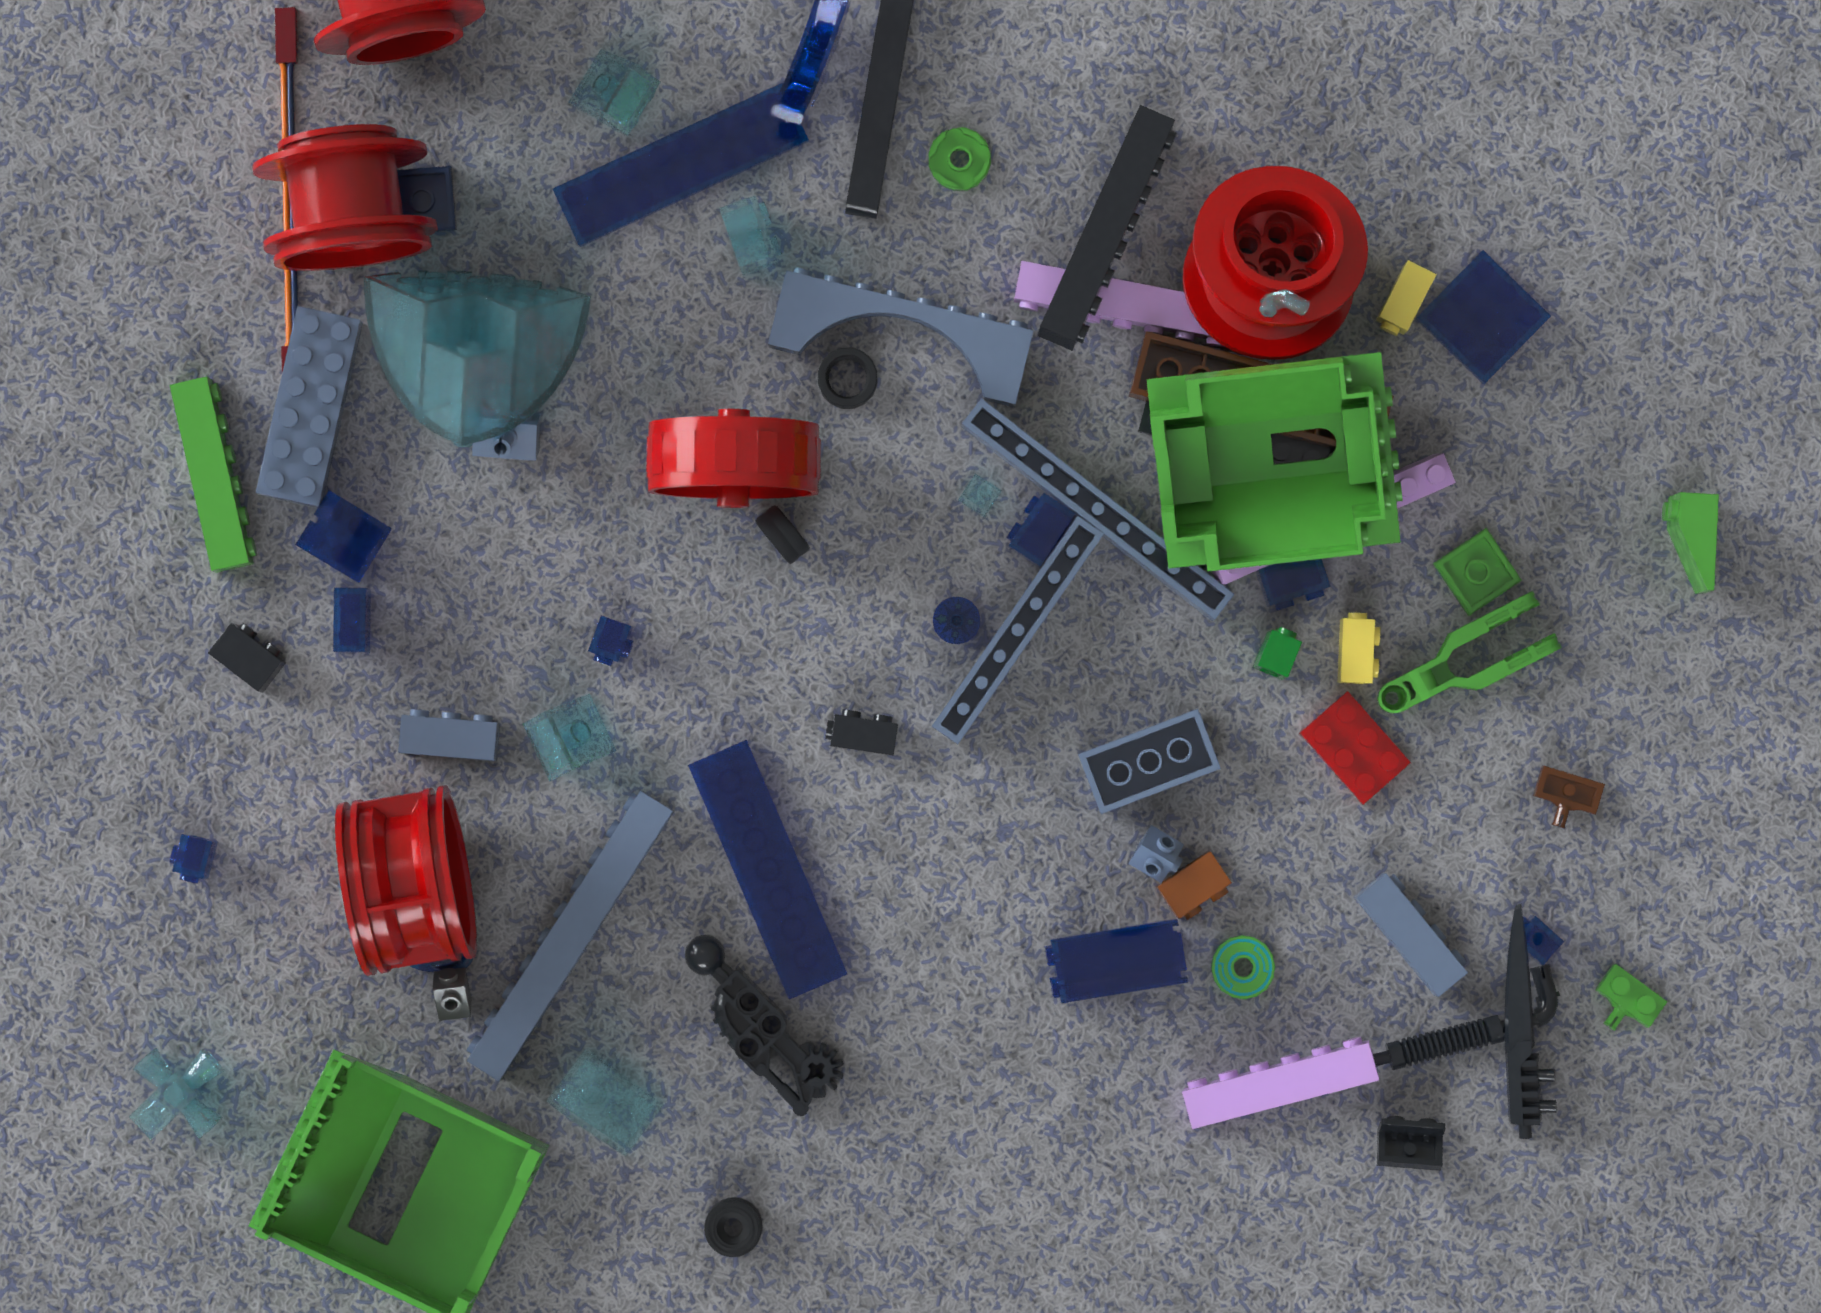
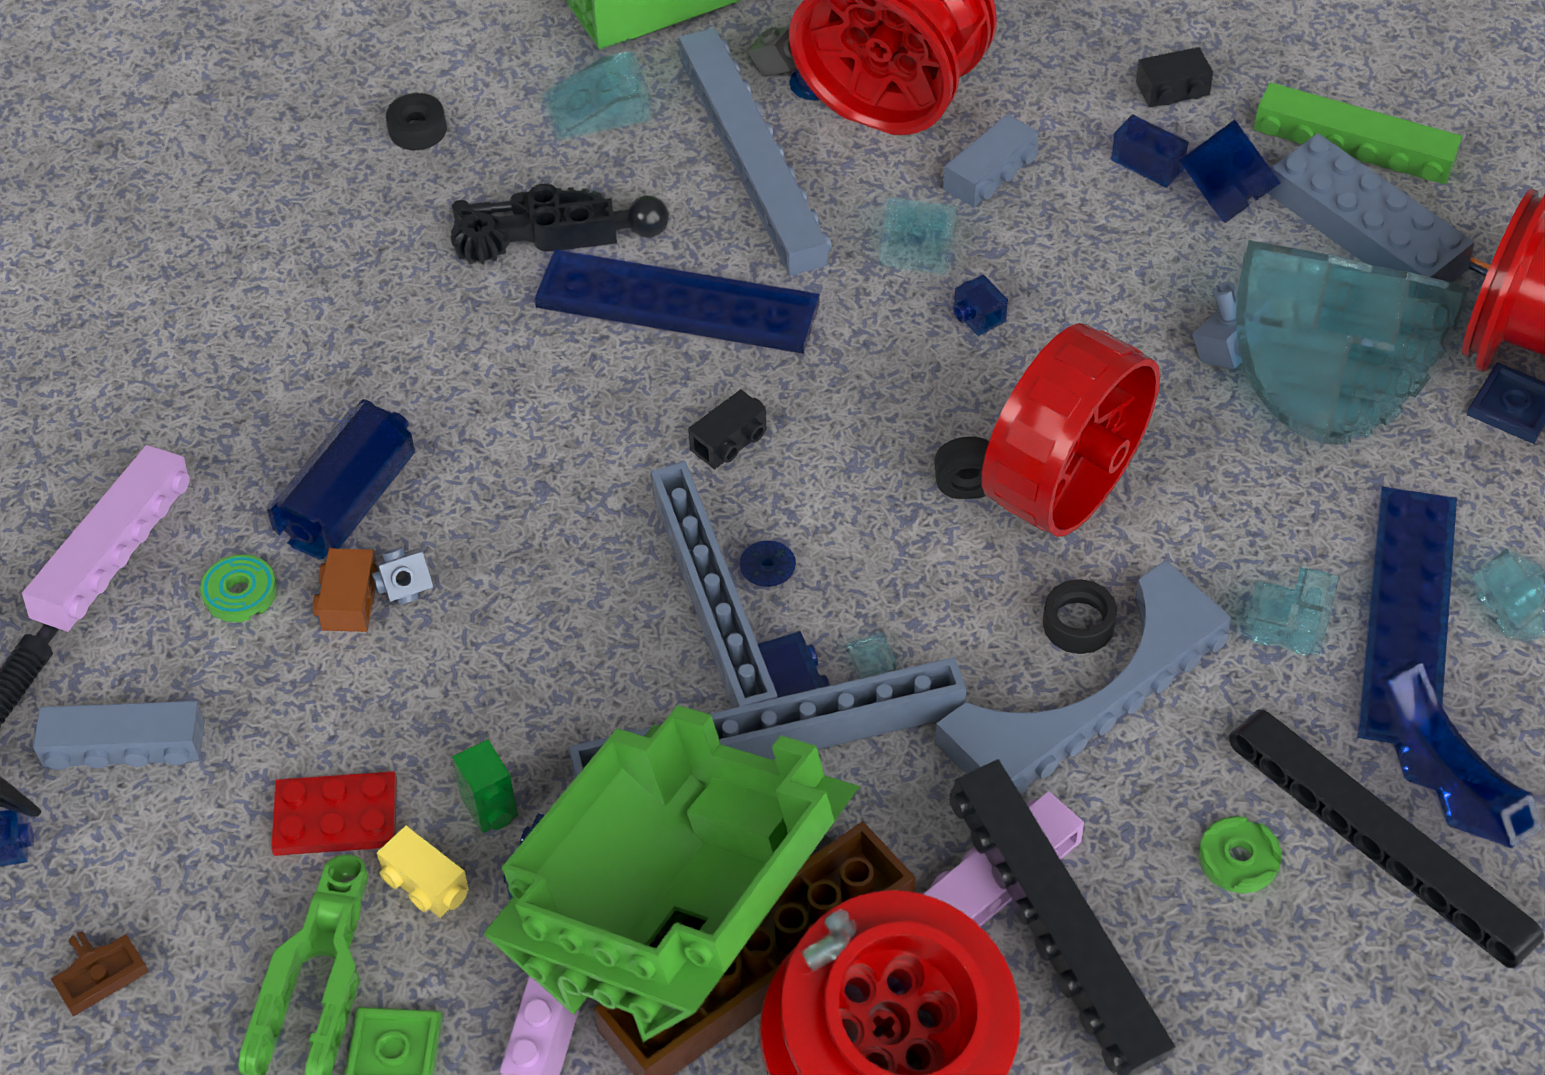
camera: 130 degrees right, 35 degrees down
(1149, 761) = (490, 623): sand blue brick -> none

